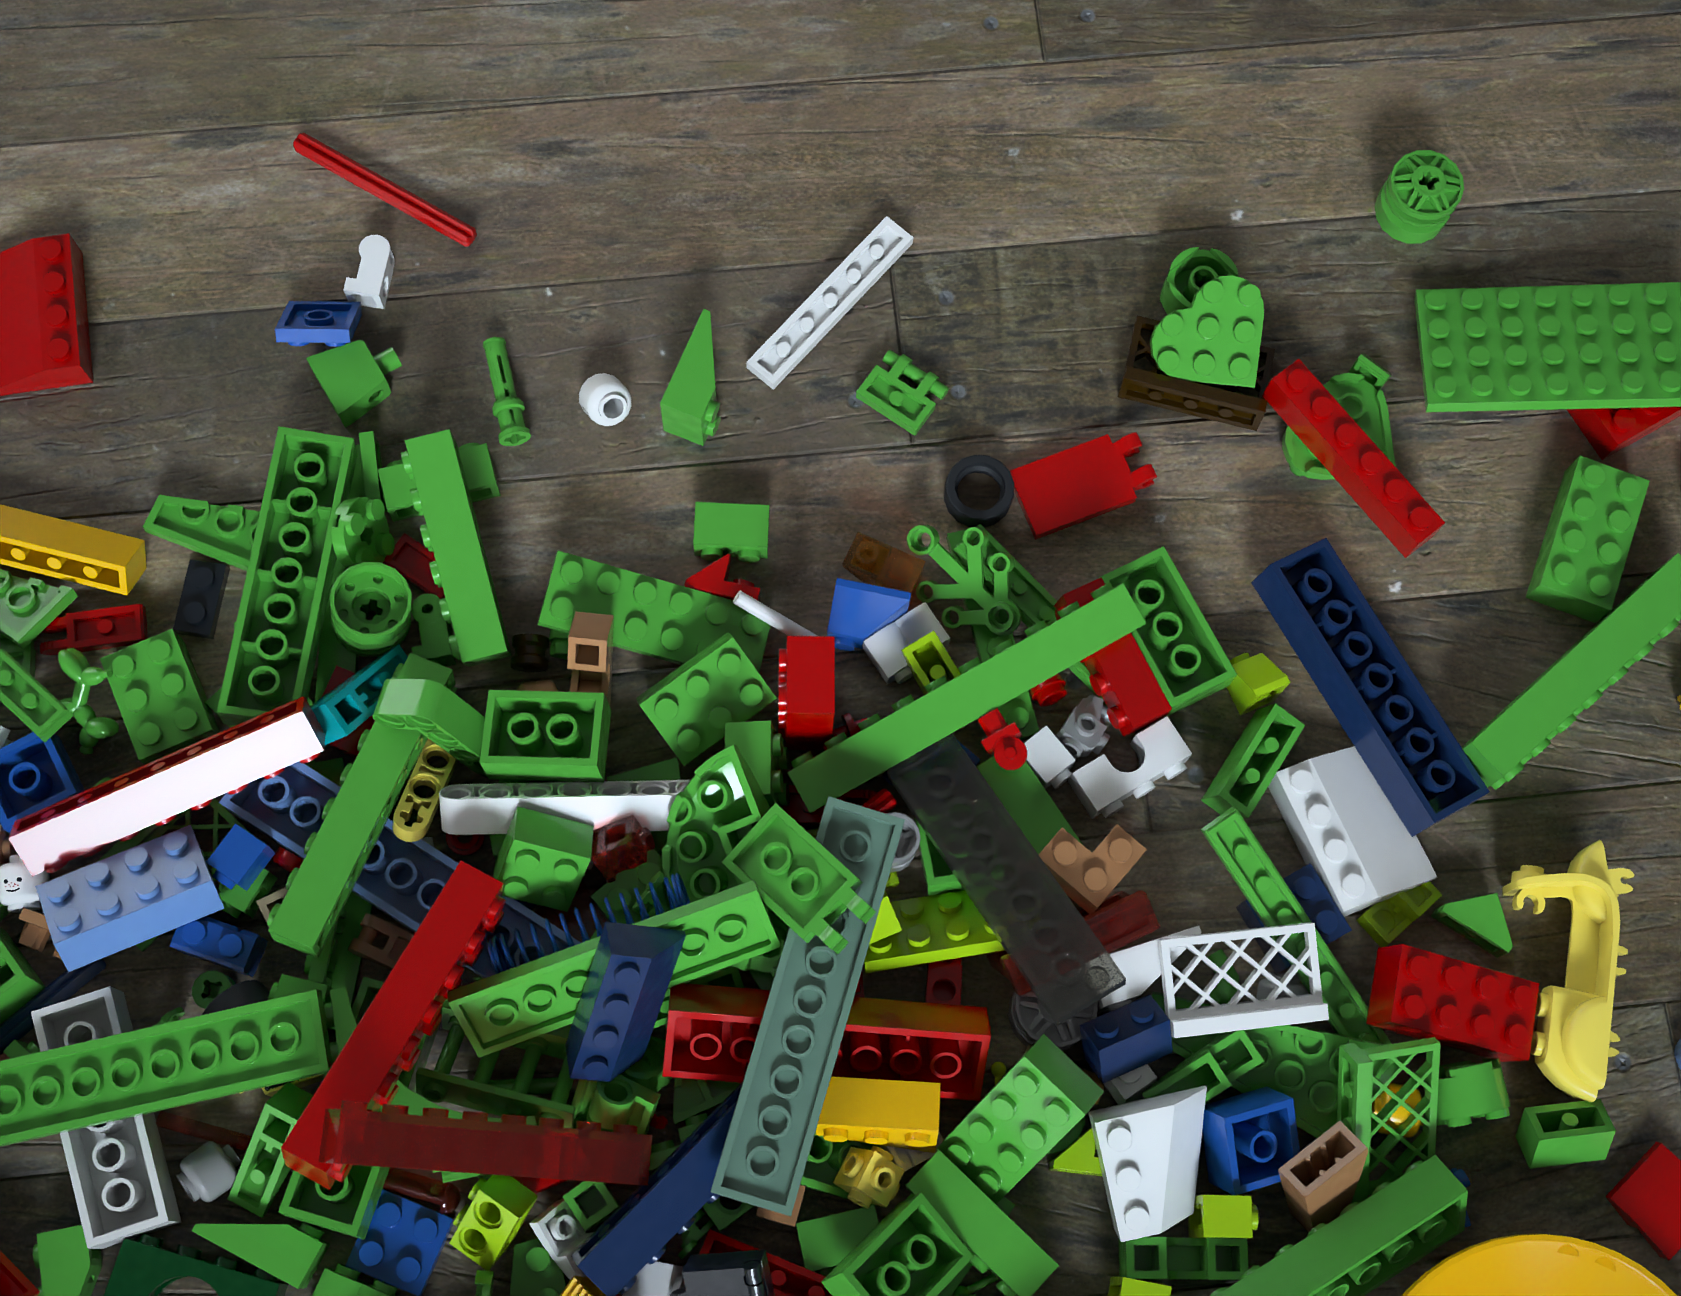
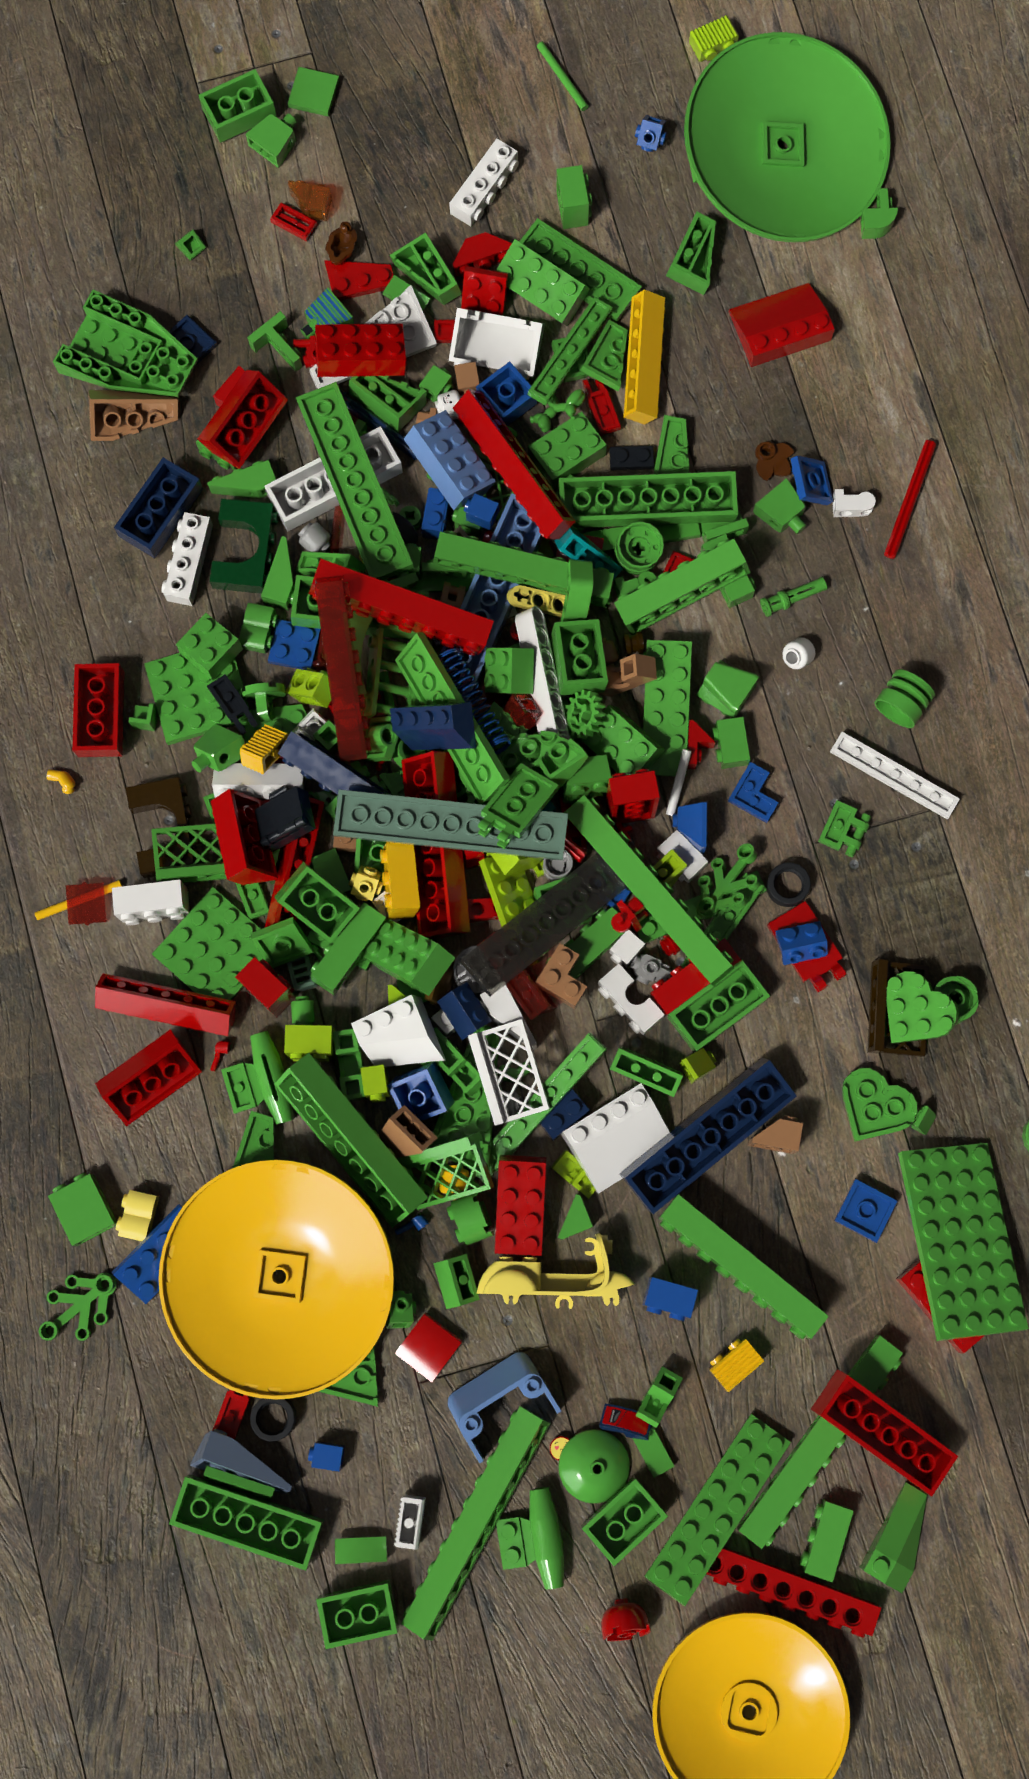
camera: 90 degrees right, 5 degrees up
(269, 374) = (776, 462): none -> reddish brown plate
(363, 518) = (683, 543): bright green plate -> none
(640, 518) = (727, 688): none -> bright green piece
(651, 743) = (584, 714): none -> bright green gear
(690, 399) = (817, 702): bright green slope -> none
(715, 257) = (904, 698): none -> bright green wheel
(821, 524) = (747, 794): none -> blue plate
(883, 565) = (725, 834): clear orange slope -> none
(1078, 486) = (802, 943): none -> blue bracket
(1352, 458) = (854, 1107): red brick -> none
(1384, 574) = (780, 1136): none -> medium nougat slope
(1501, 479) = (865, 1210): none -> blue plate
(1587, 539) = (835, 1268): bright green brick -> none
(1606, 1230) = (401, 1311): none -> bright green brick
(1620, 792) = (669, 1298): none -> blue brick

